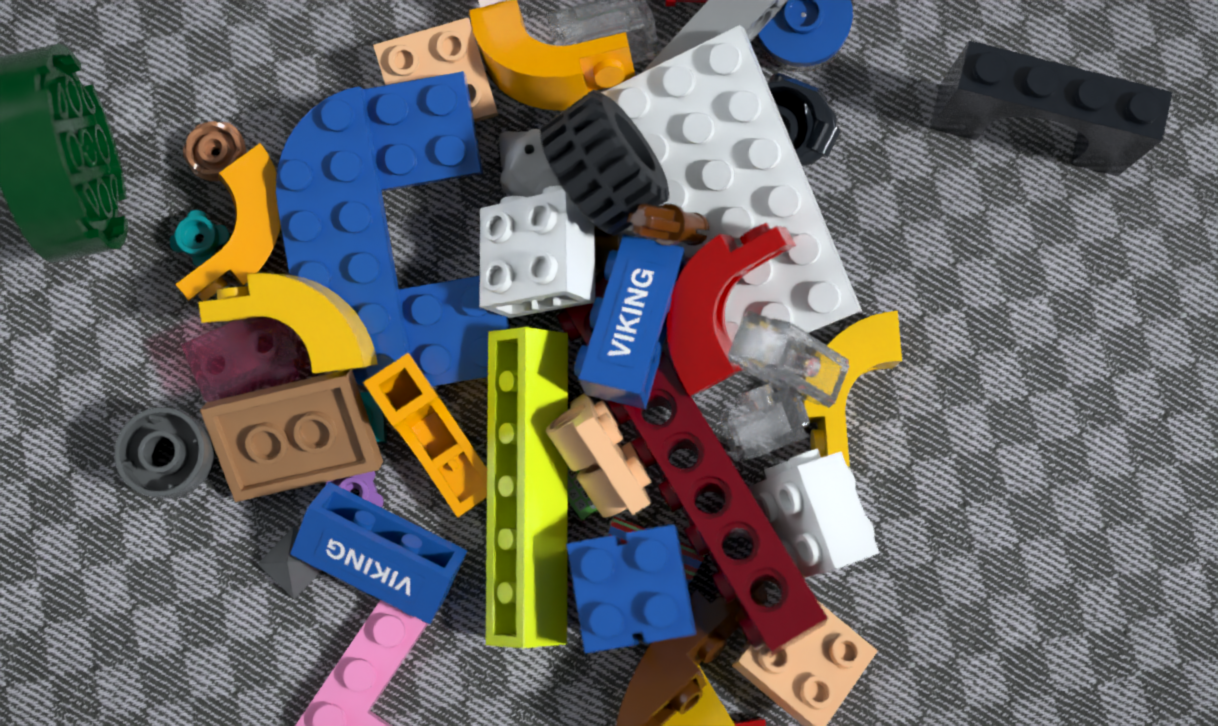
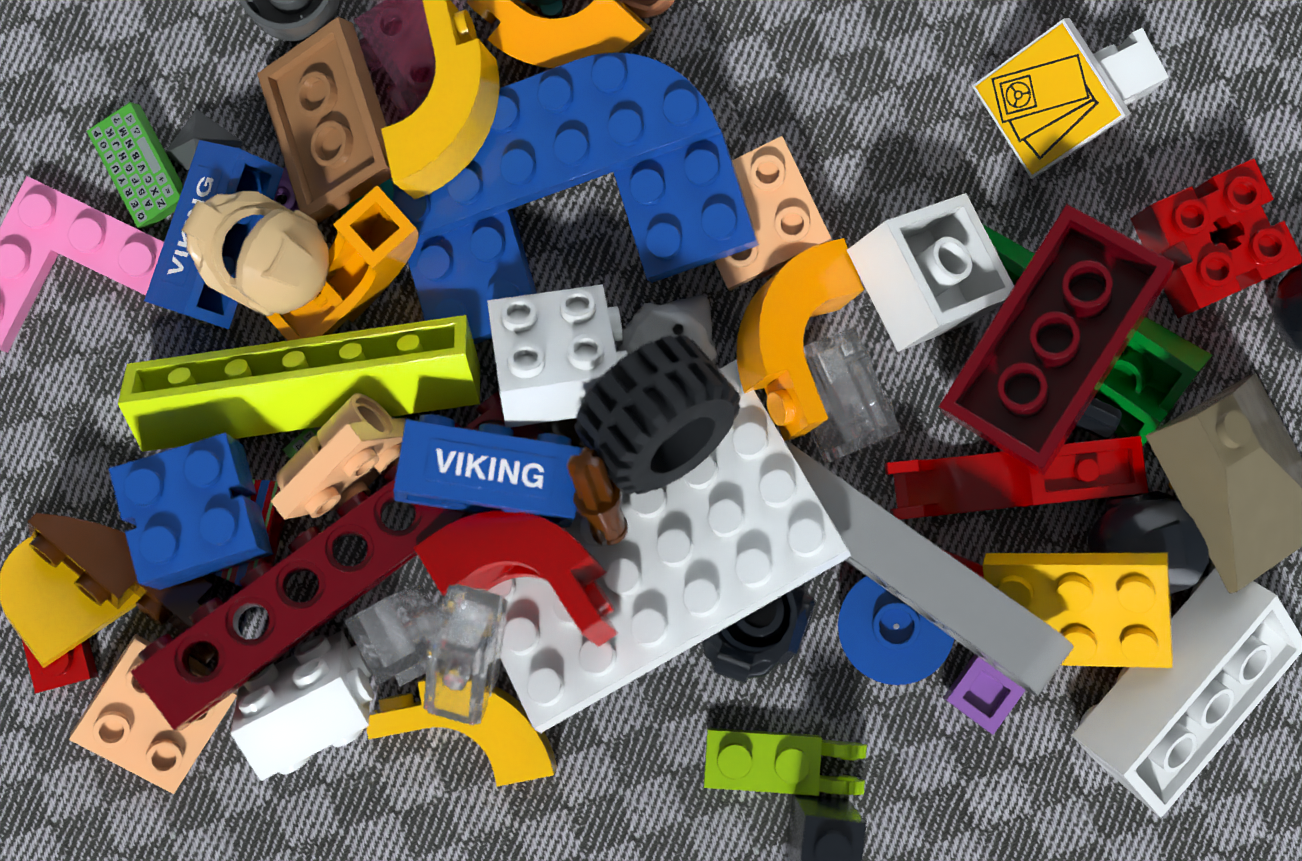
camera: 85 degrees right, 5 degrees up
(301, 621) = (137, 165): none -> tile
(416, 478) = (280, 260): none -> tan helmet
(903, 135) = (777, 762): none -> lime hinge

